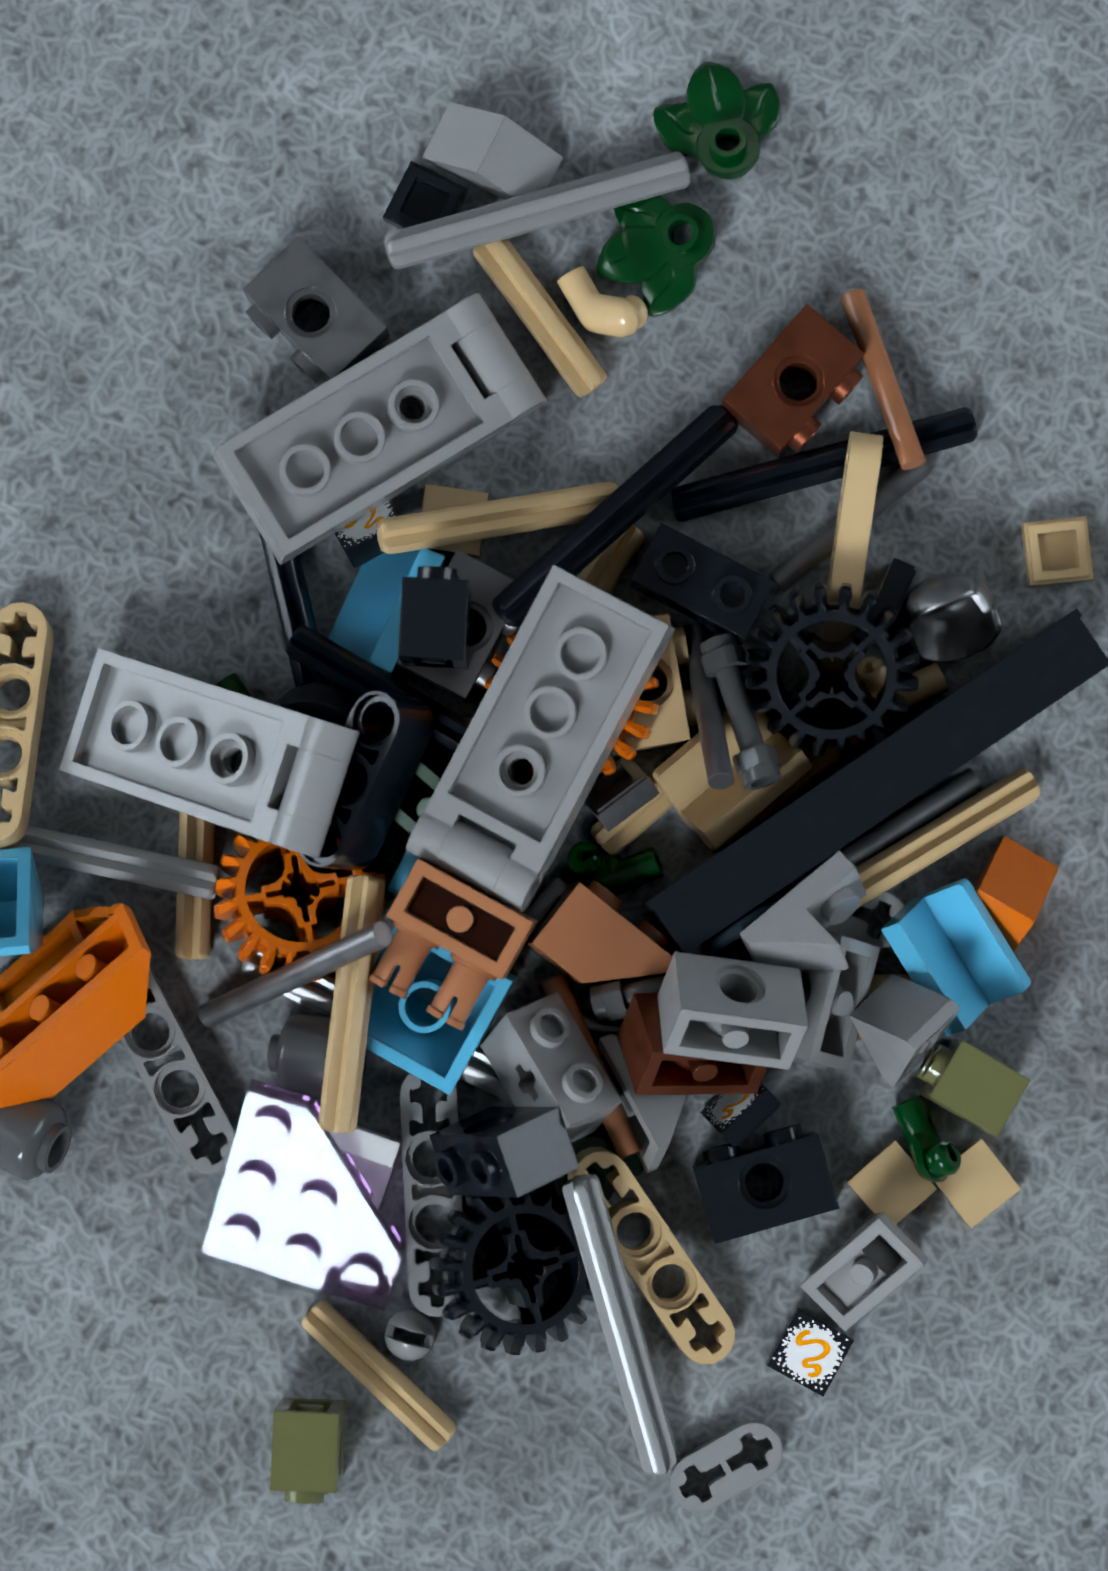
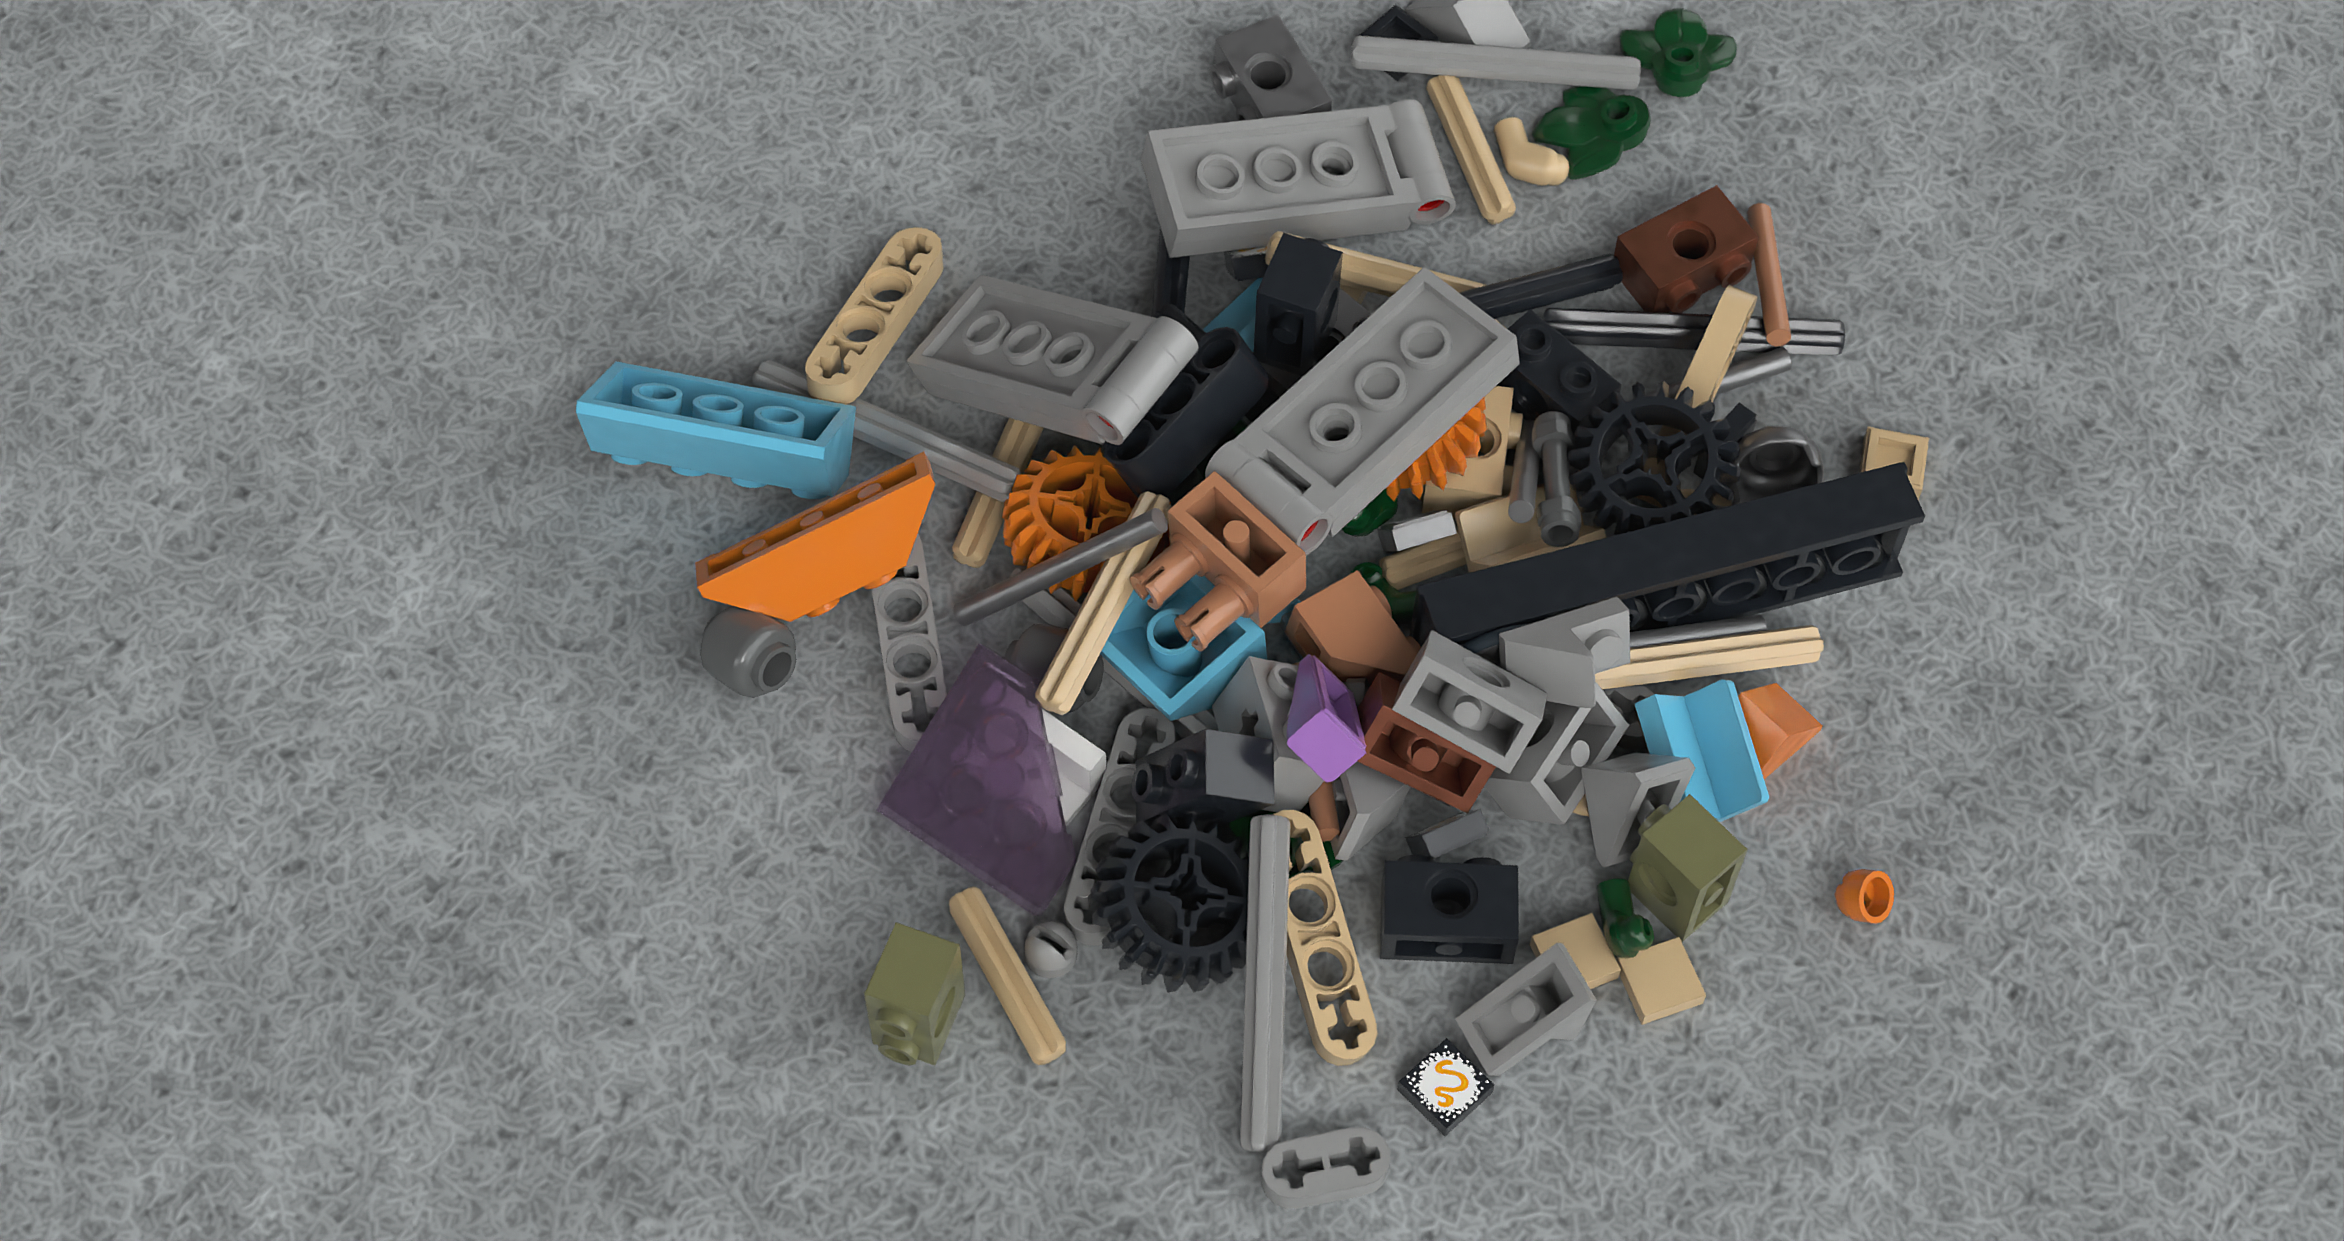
camera: 15 degrees right, 25 degrees down
(599, 1068) = (1324, 721): none -> medium lavender slope

